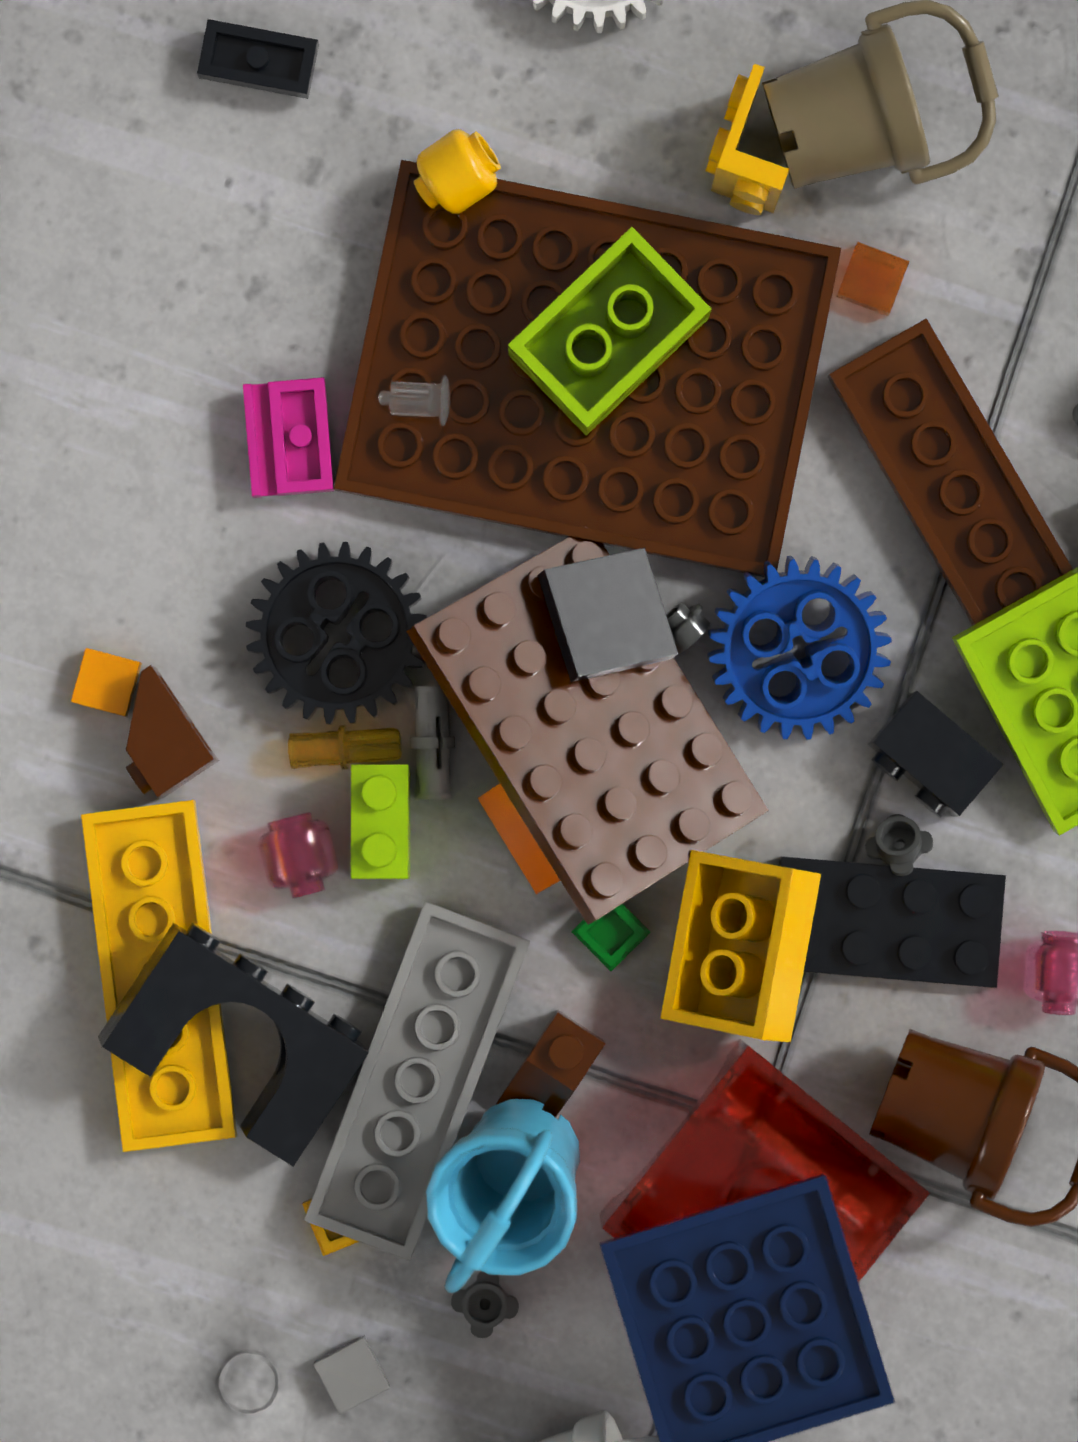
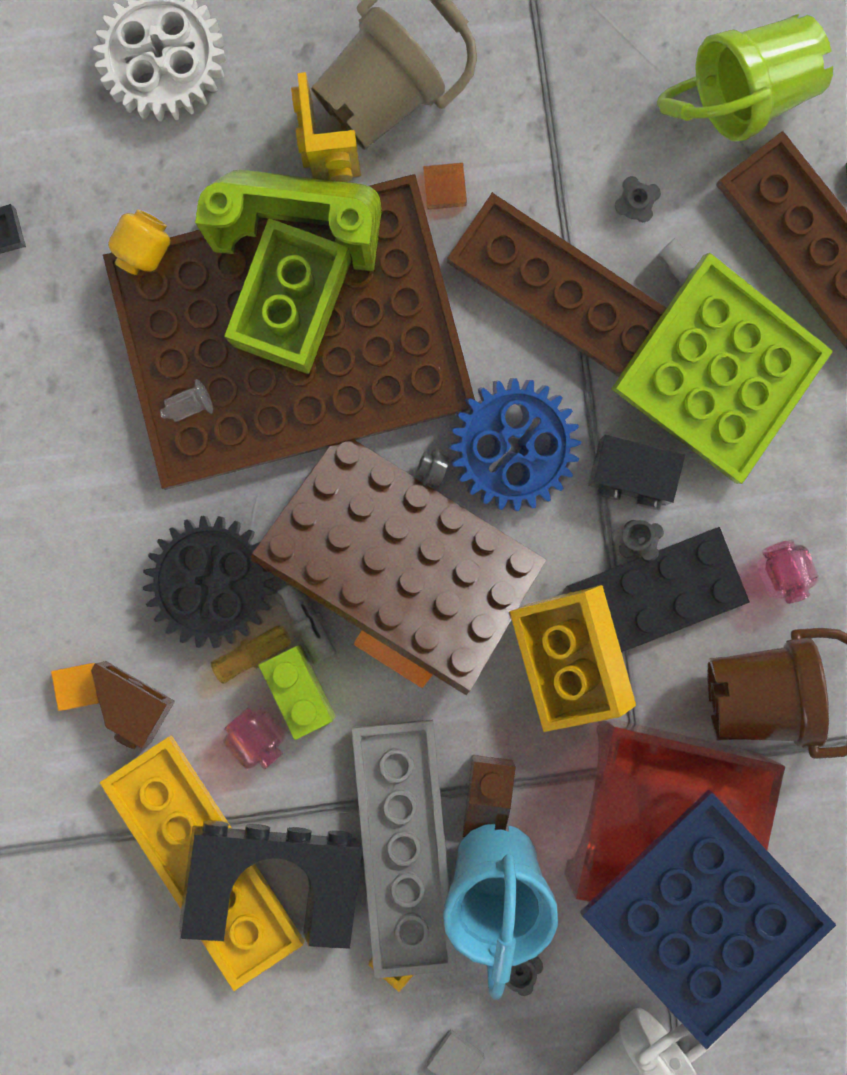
camera: 20 degrees left, 0 degrees up
(288, 437) = (117, 470): dark pink plate -> none
(607, 614) = (379, 483): tile -> none
(612, 935) = (486, 691): green tile -> none
(618, 174) = (237, 200): none -> lime windscreen

